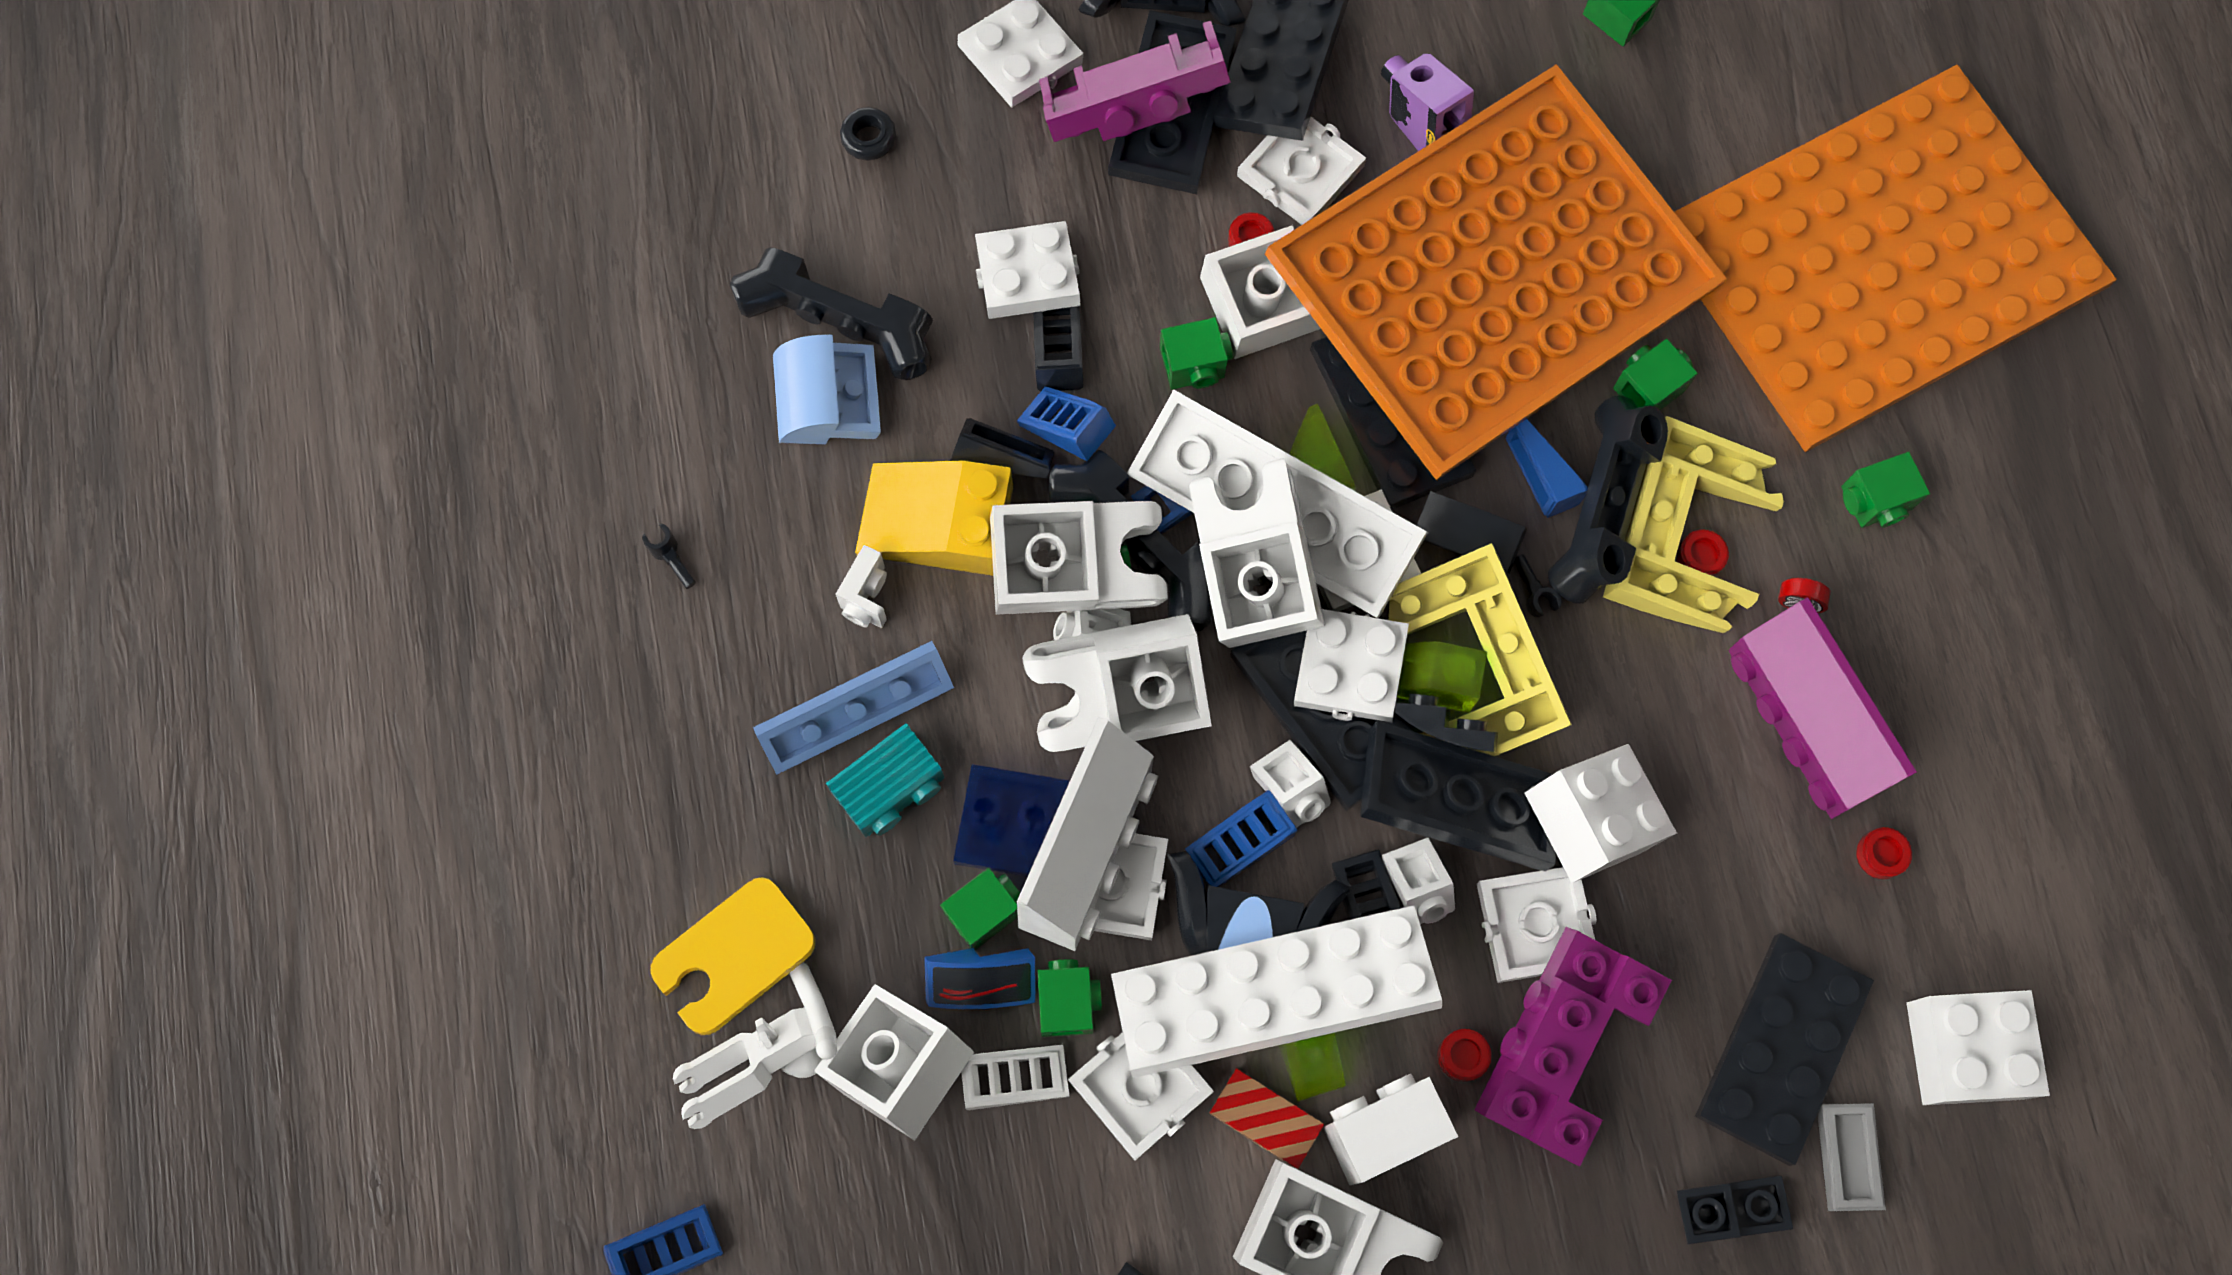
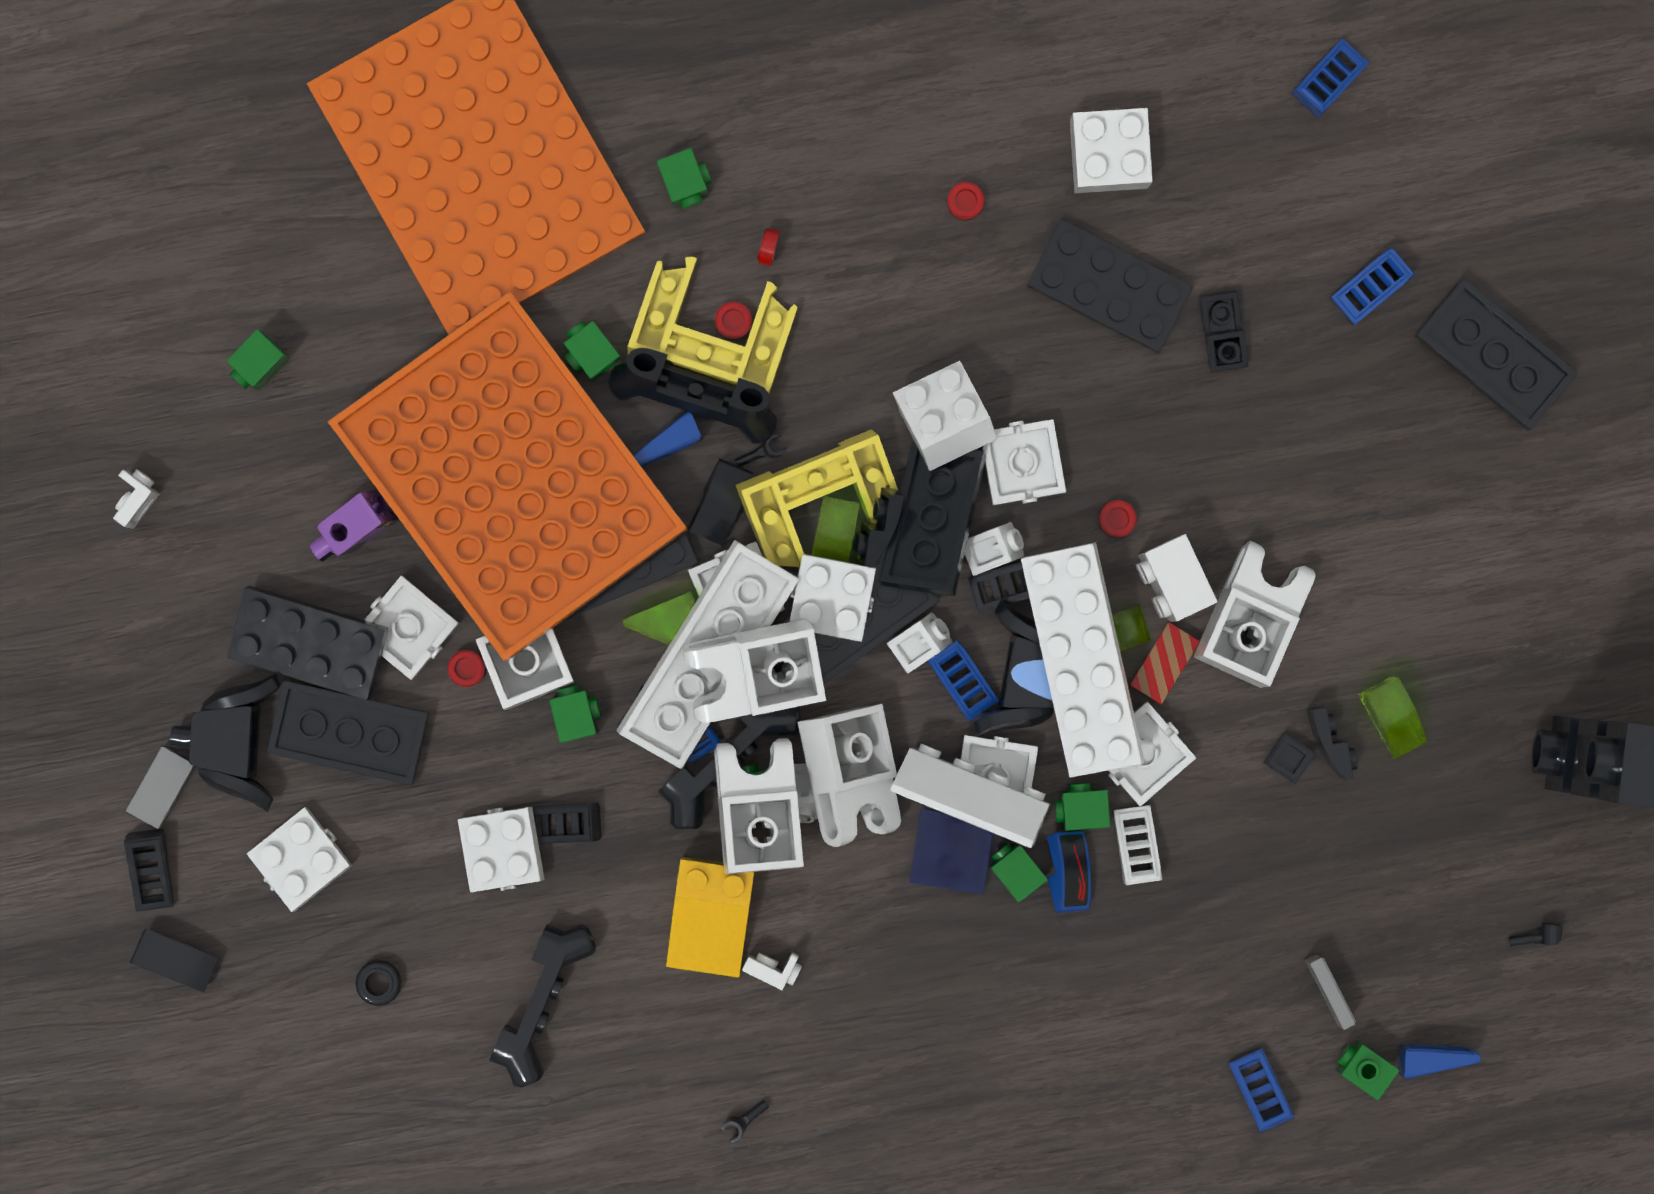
camera: 95 degrees left, 15 degrees up
(742, 948) = (1047, 1044): yellow piece -> none
(790, 1042) = (1117, 1005): white piece -> none
(825, 390) = (610, 1006): light blue brick -> none
(853, 707) = (866, 972): medium blue plate -> none
(887, 782) = (923, 946): teal brick -> none
(895, 1061) = (1132, 932): white brick -> none
(996, 447) = (659, 867): black slope -> none
(1087, 436) = (649, 798): blue slope -> none
(1135, 89) = (354, 765): magenta bracket -> none
(1557, 1037) = (1107, 454): magenta bracket -> none
(1819, 710) = (864, 247): slope -> none
(1851, 1157) = (1185, 244): light grey tile -> none

